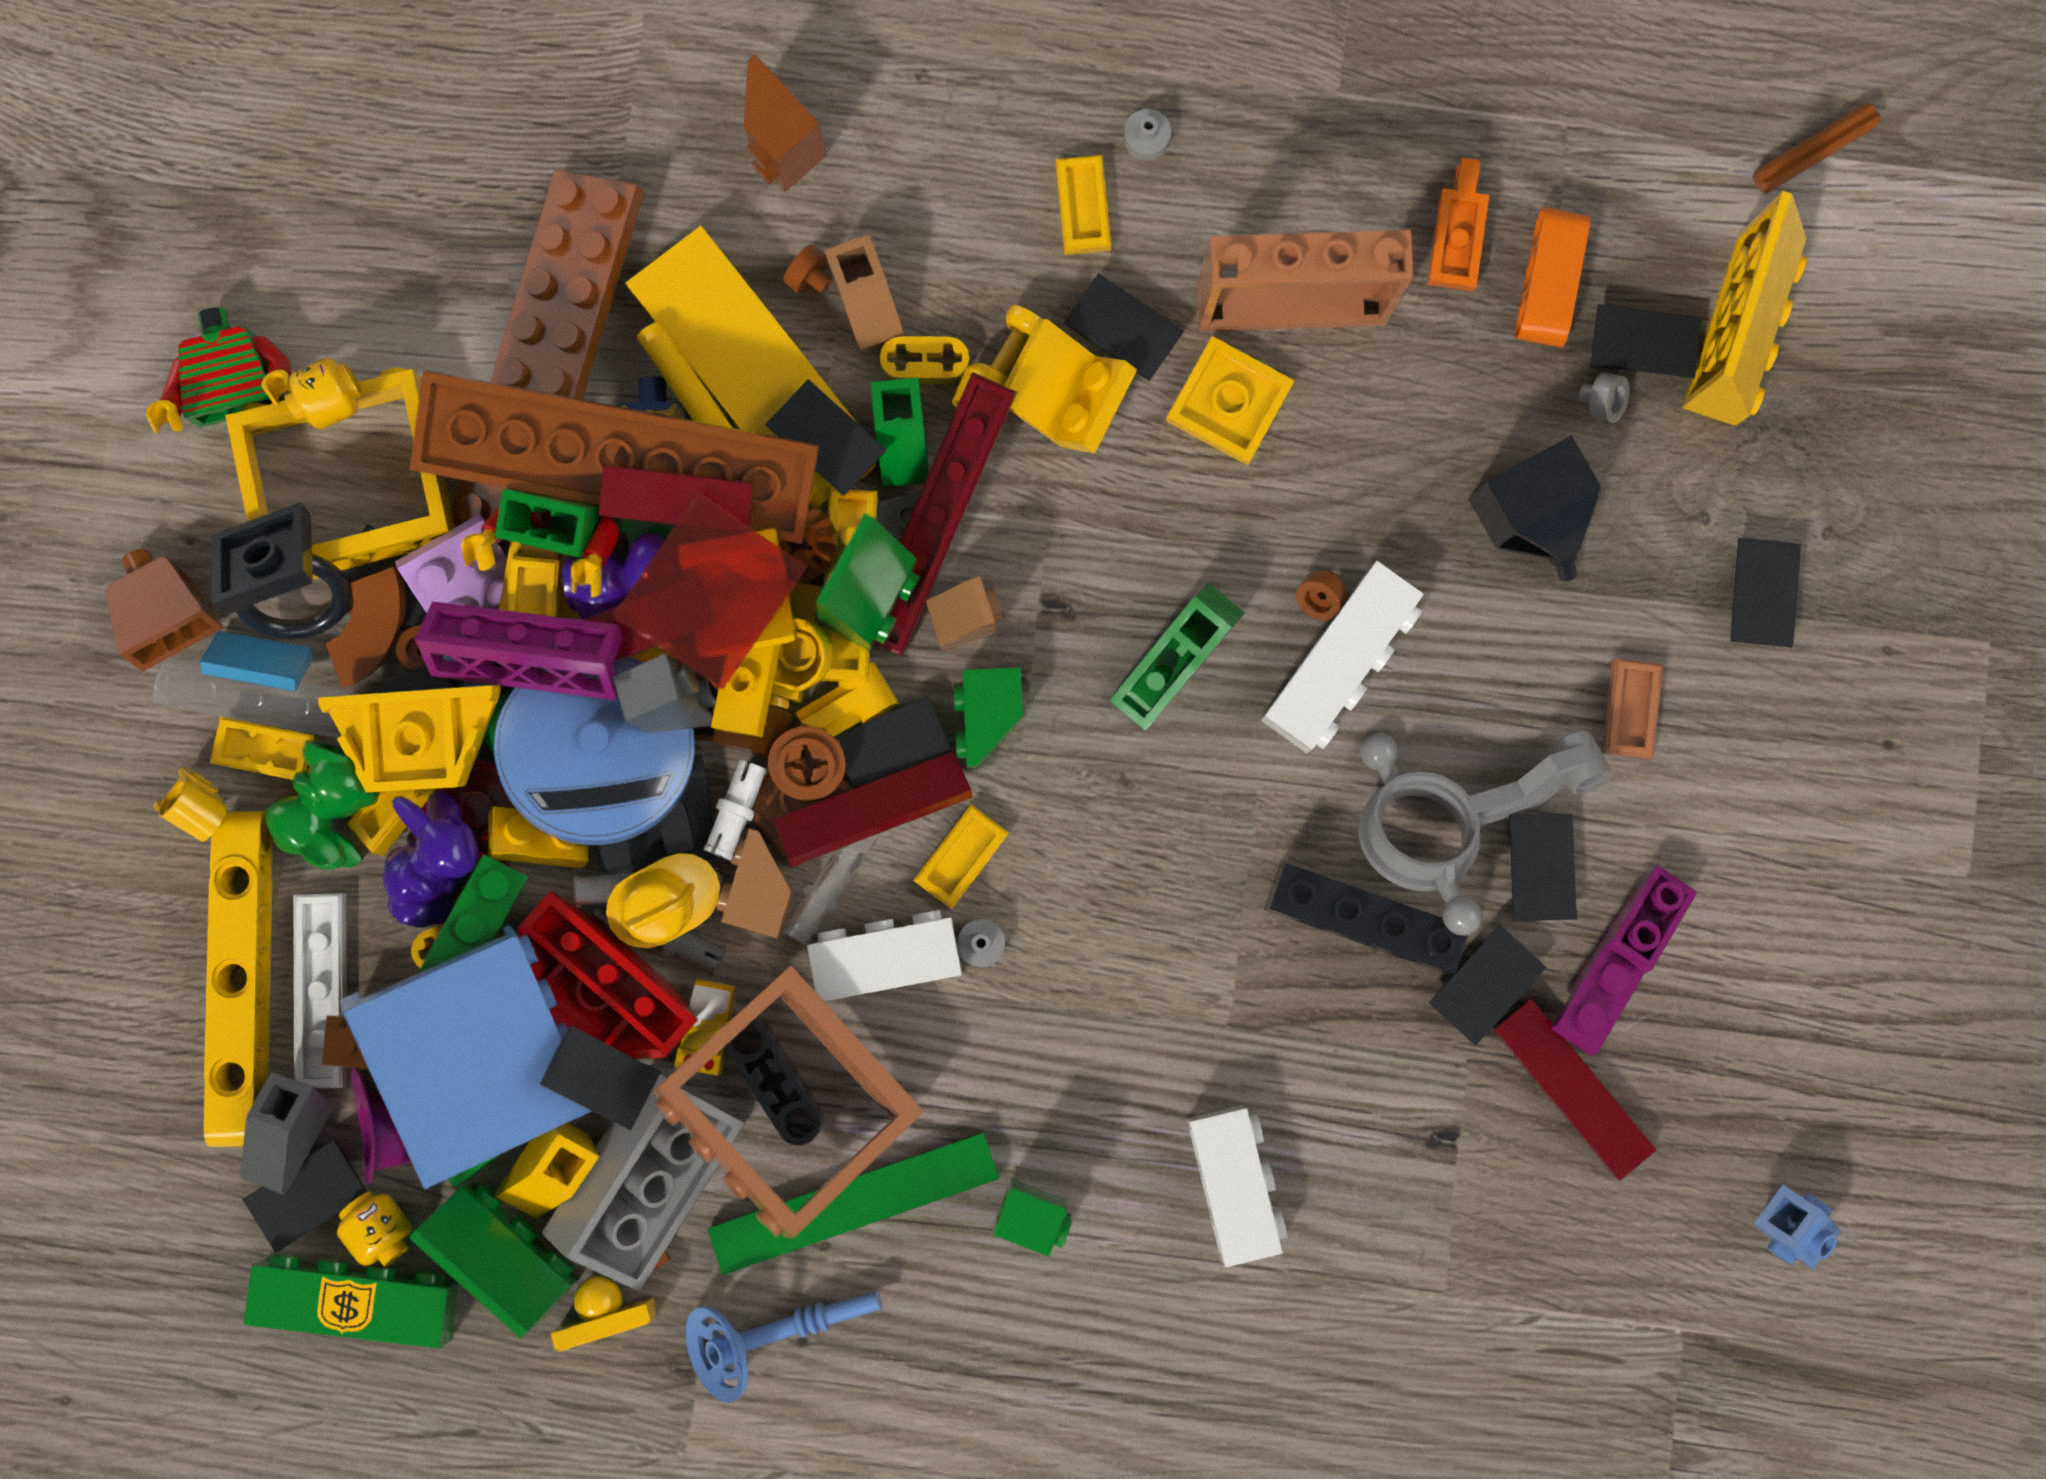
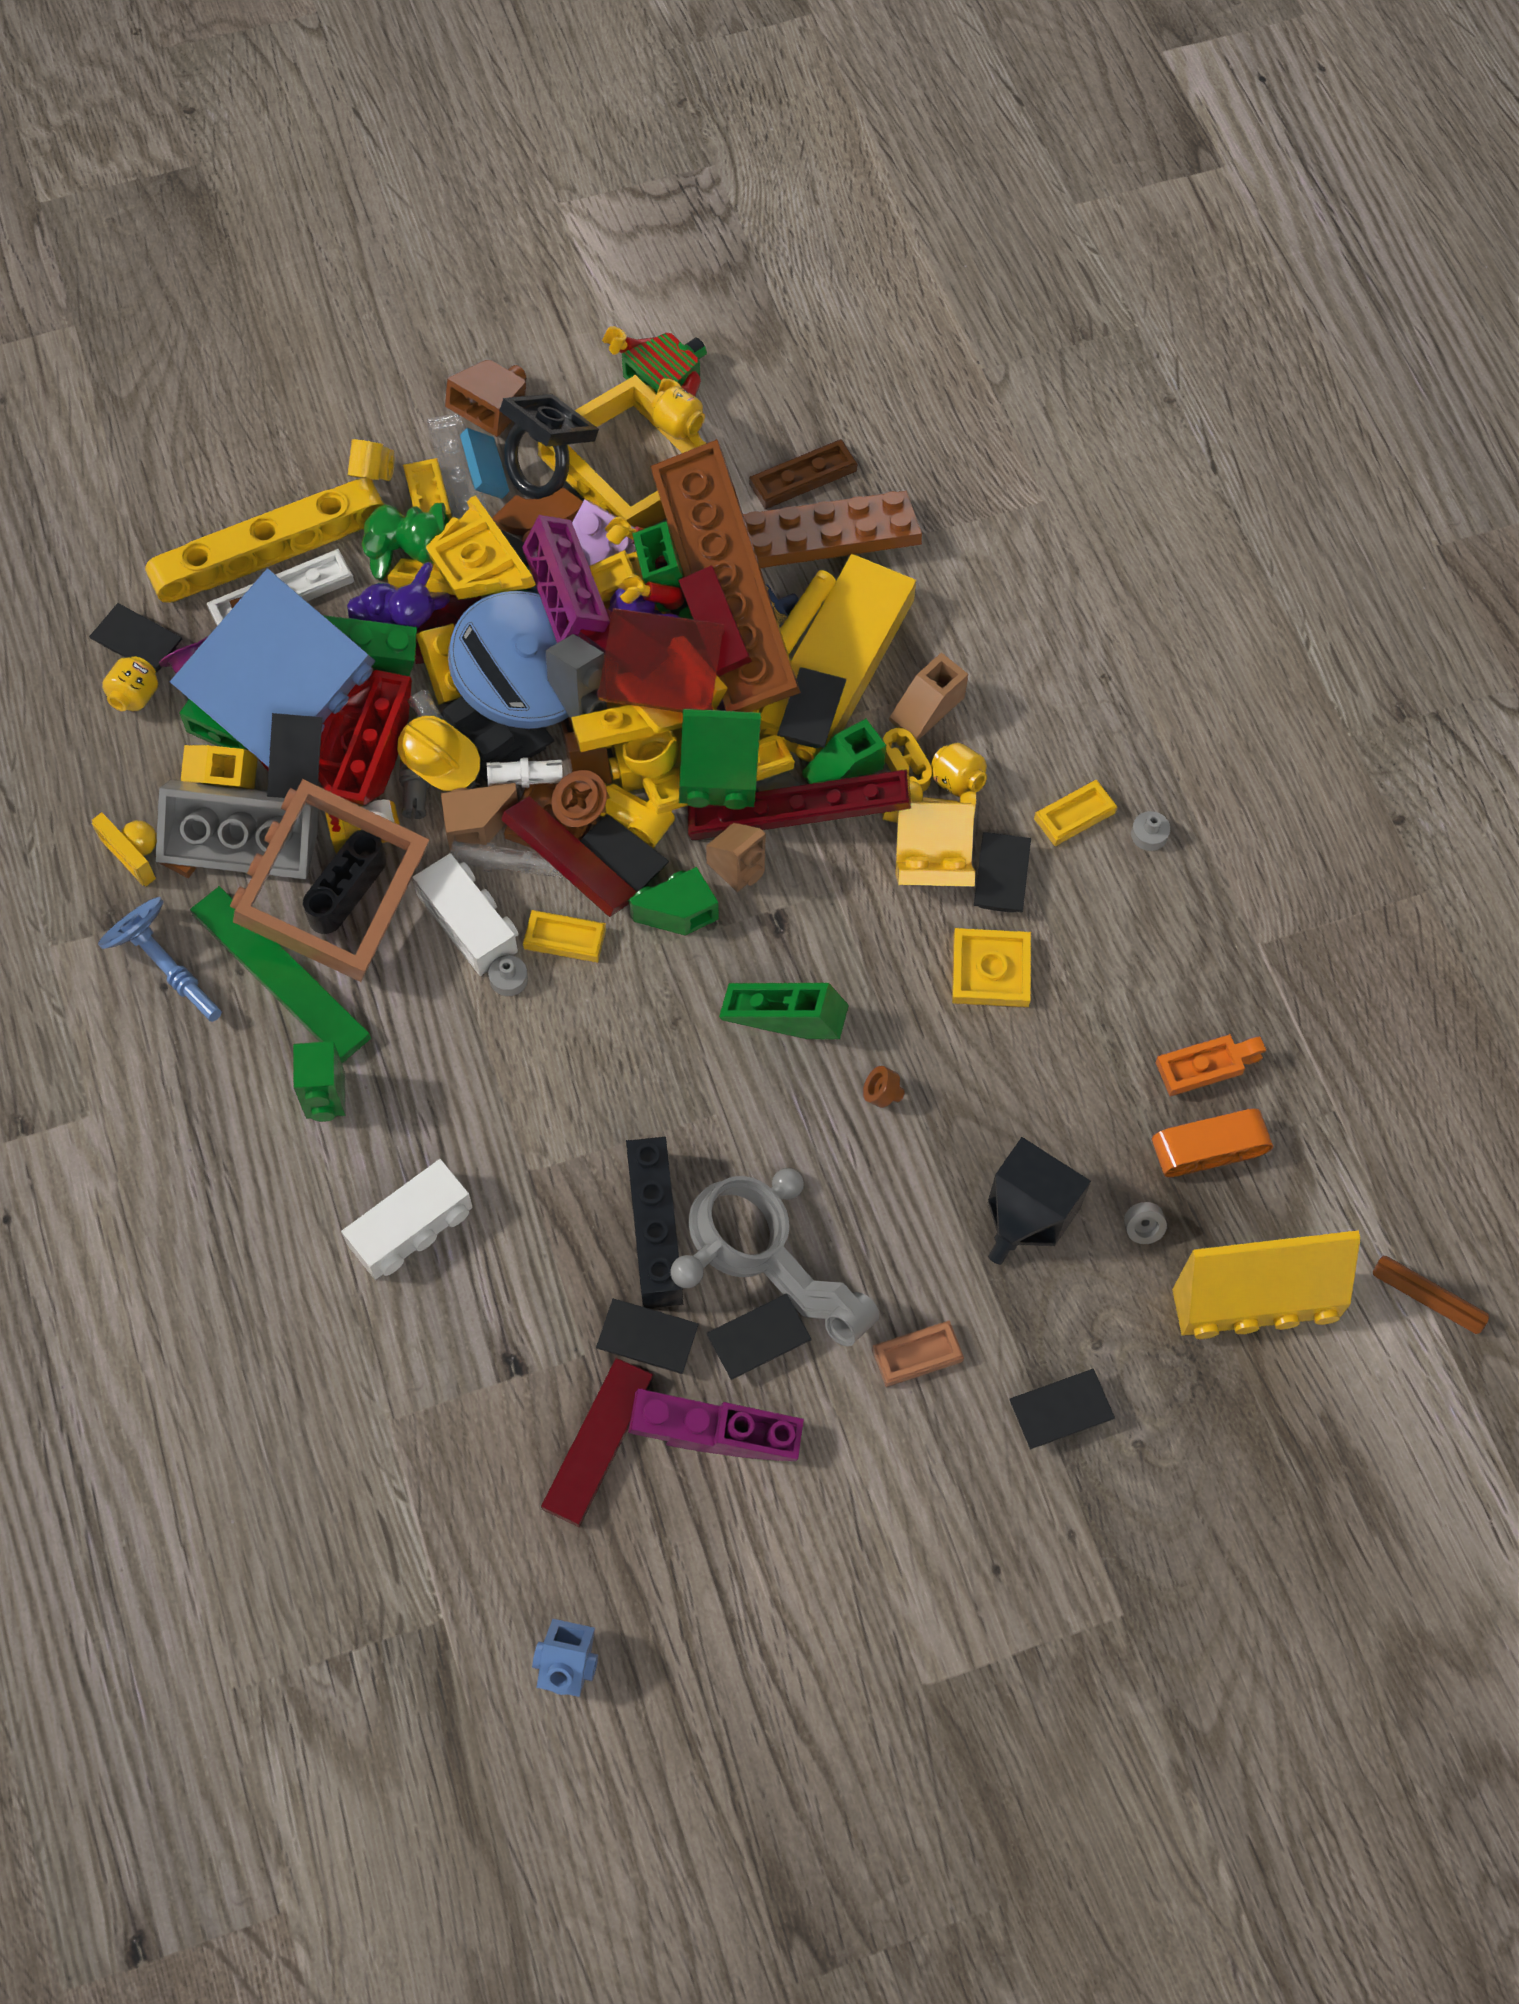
camera: 65 degrees right, 20 degrees down
(281, 1132) = (174, 600): dark grey slope -> none
(351, 1301) = (74, 694): green brick -> none
(463, 279) = (803, 474): none -> reddish brown tile
(496, 1257) = (139, 758): green slope -> none
(779, 129) = (1008, 595): dark orange slope -> none
(807, 271) = (921, 655): dark orange tile -> none
(972, 307) = (959, 769): none -> yellow head
(1304, 279) = (1076, 885): nougat window -> none
(1342, 658) = (842, 1121): white brick -> none
(1646, 341) = (1199, 1219): black piece -> none

